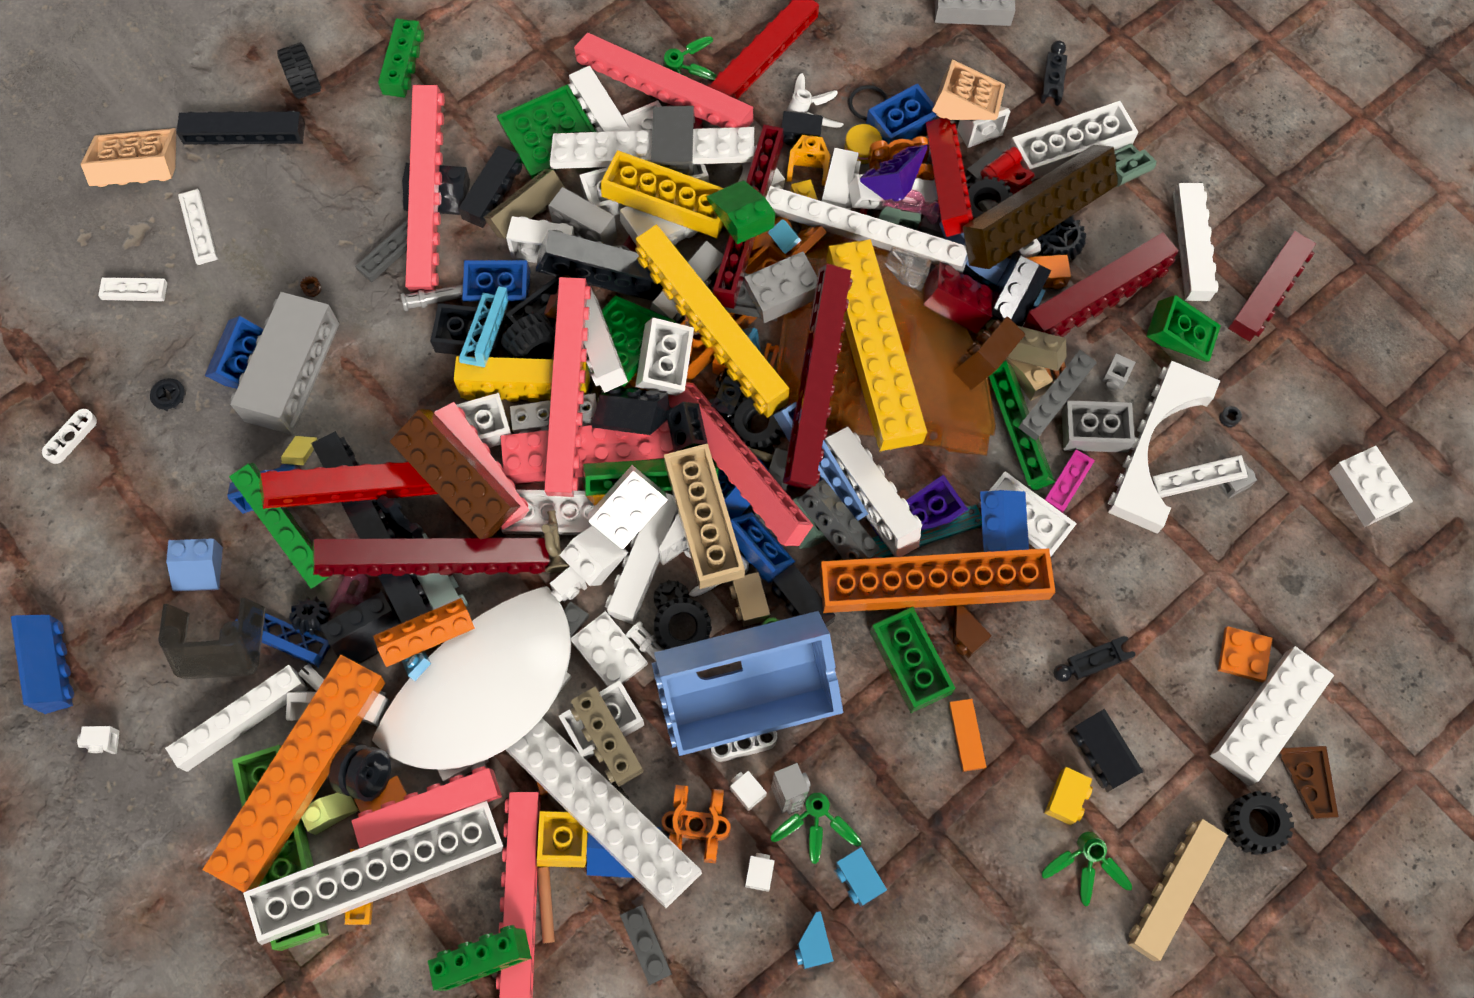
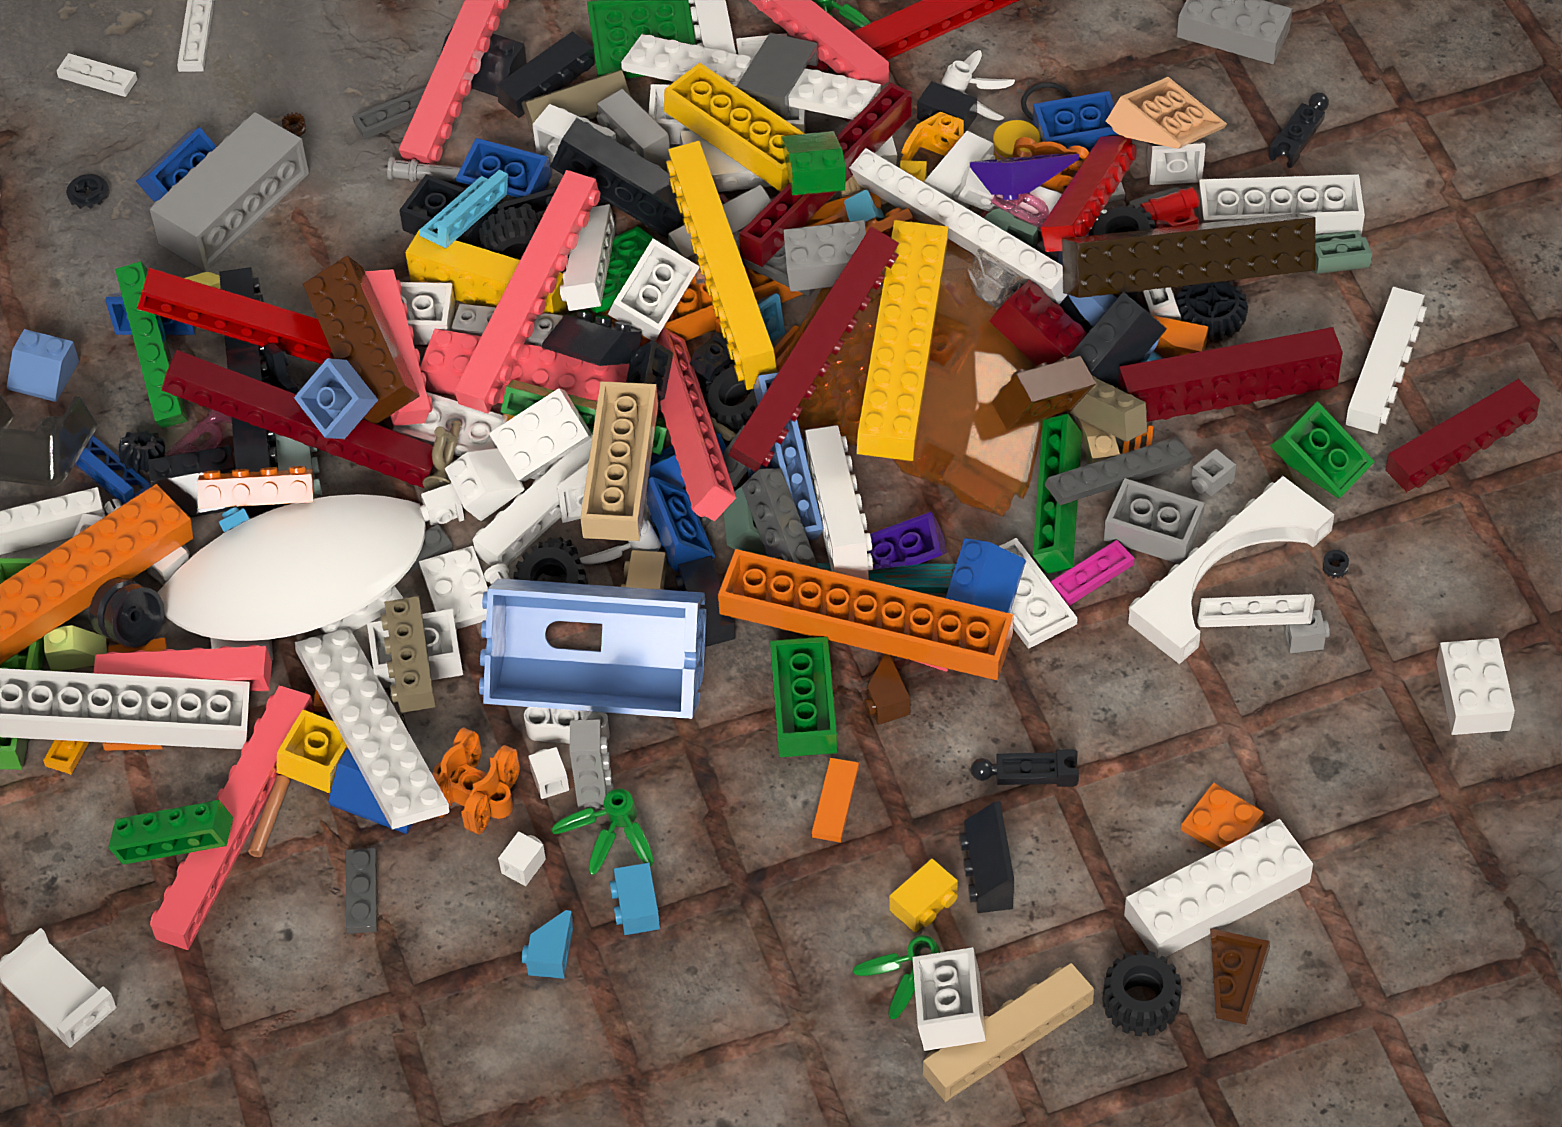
camera: 25 degrees right, 15 degrees down
(460, 537) = (335, 398): none -> medium blue brick
(1136, 888) = (948, 999): none -> white brick

